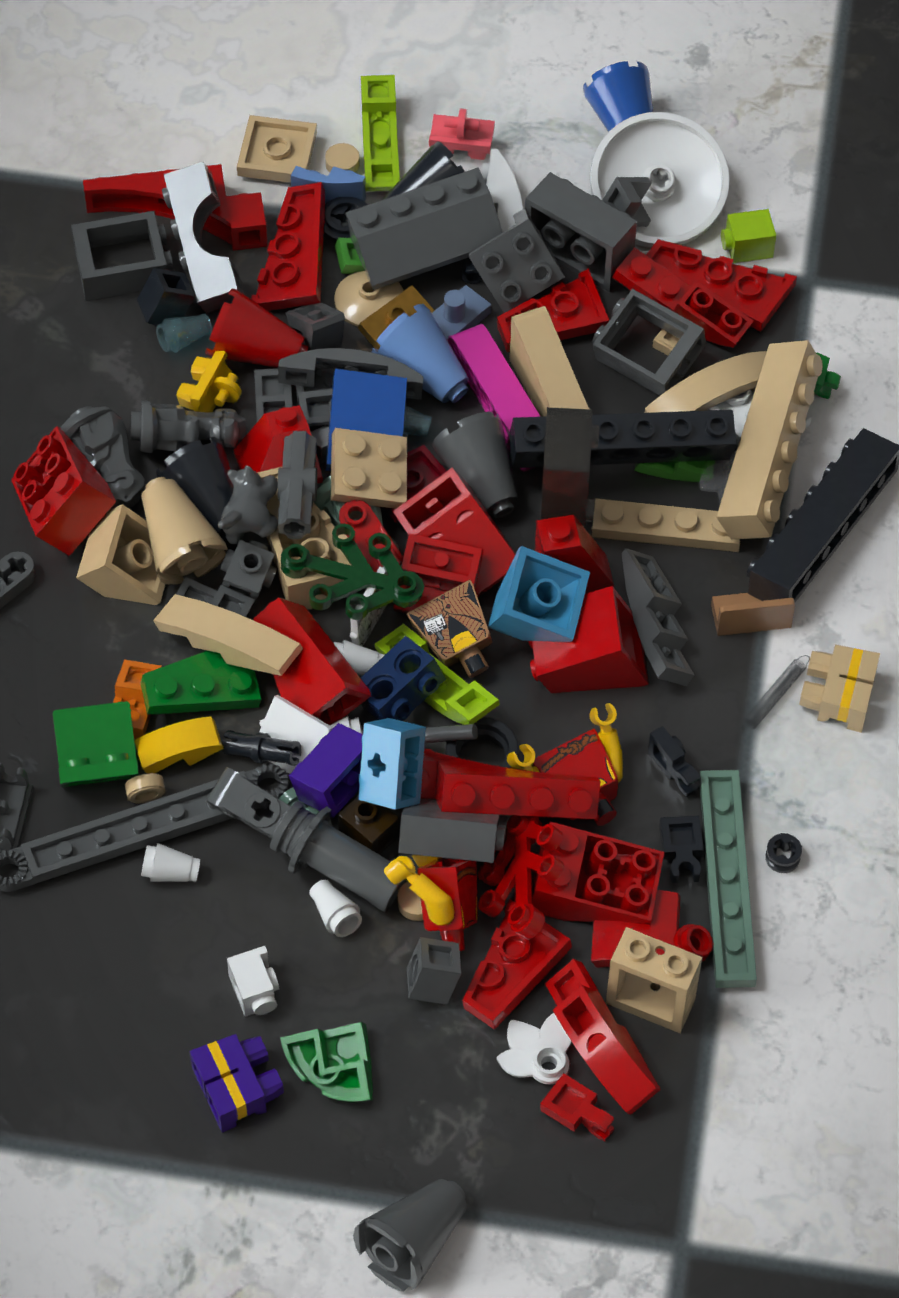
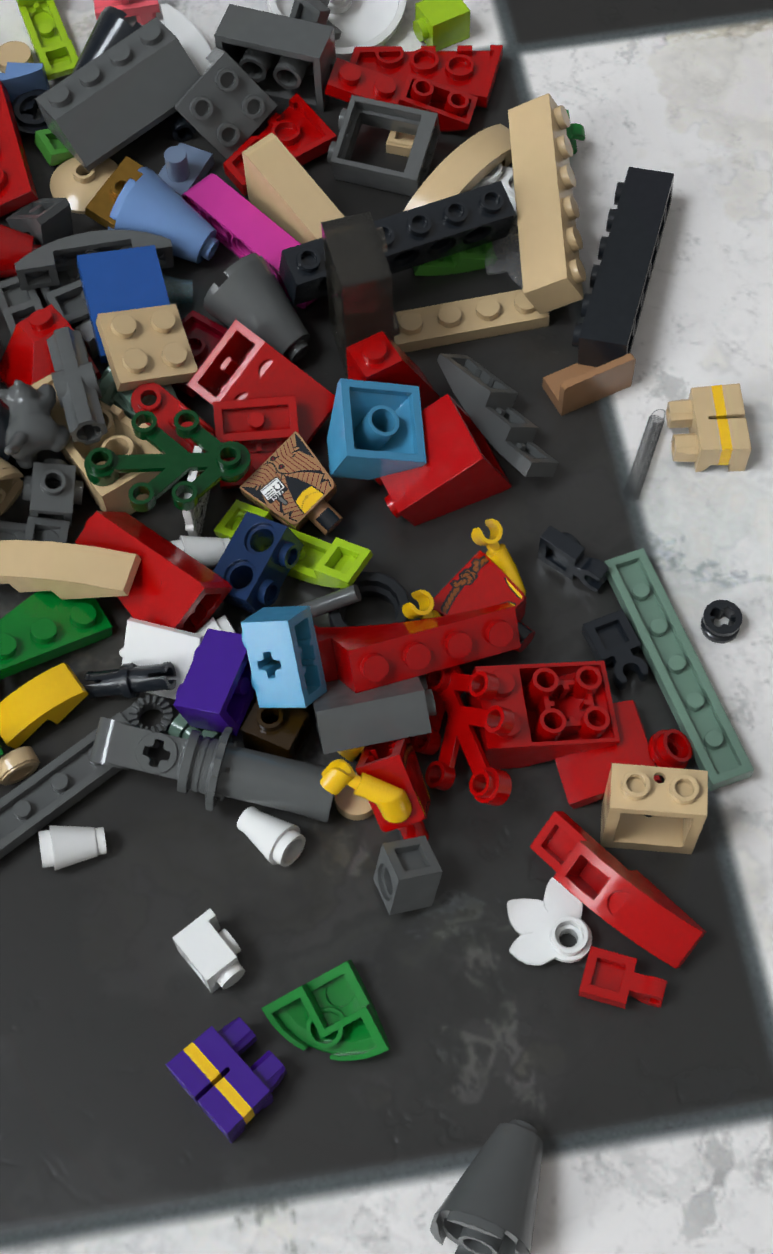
camera: 15 degrees left, 5 degrees up
(512, 970) = (488, 844): red wing -> none

